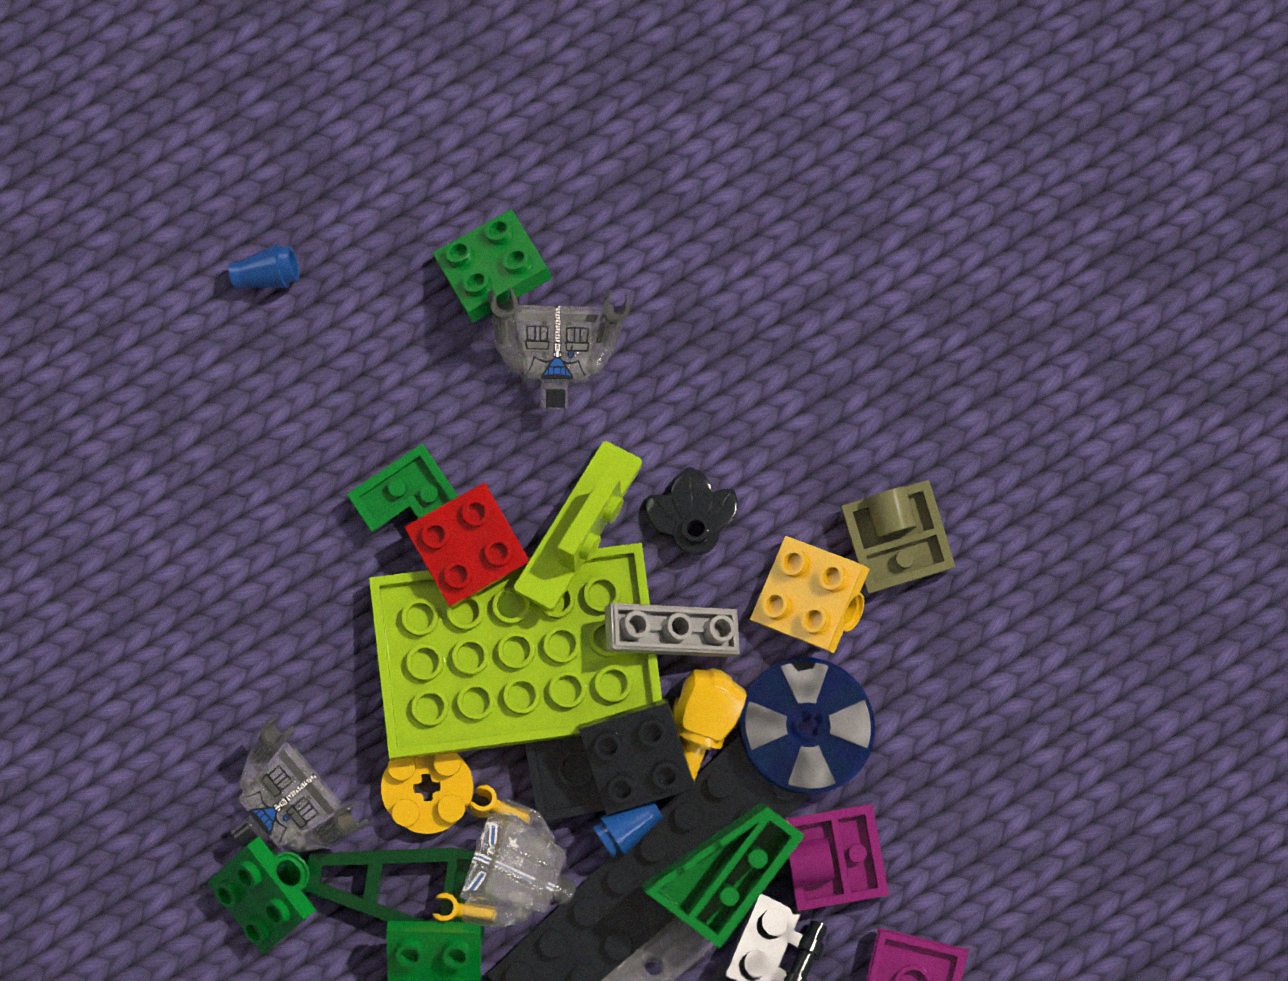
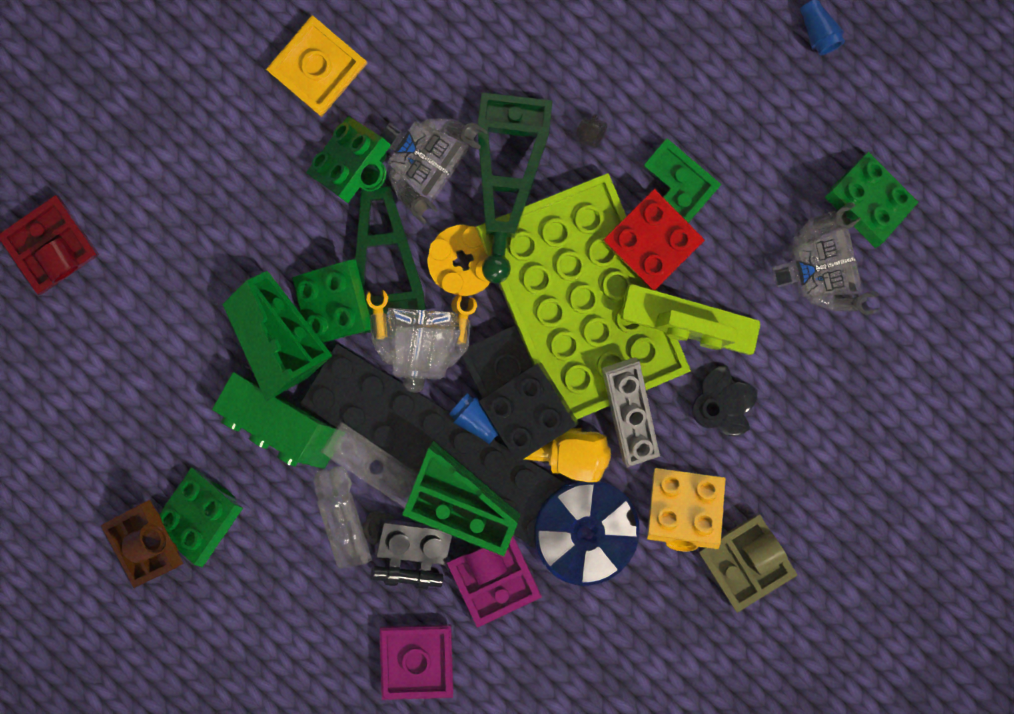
camera: 70 degrees right, 5 degrees up
(134, 904) = (316, 66): none -> yellow plate
(269, 672) = (513, 117): none -> dark green plate
(312, 584) = (591, 131): none -> clear smoke plate

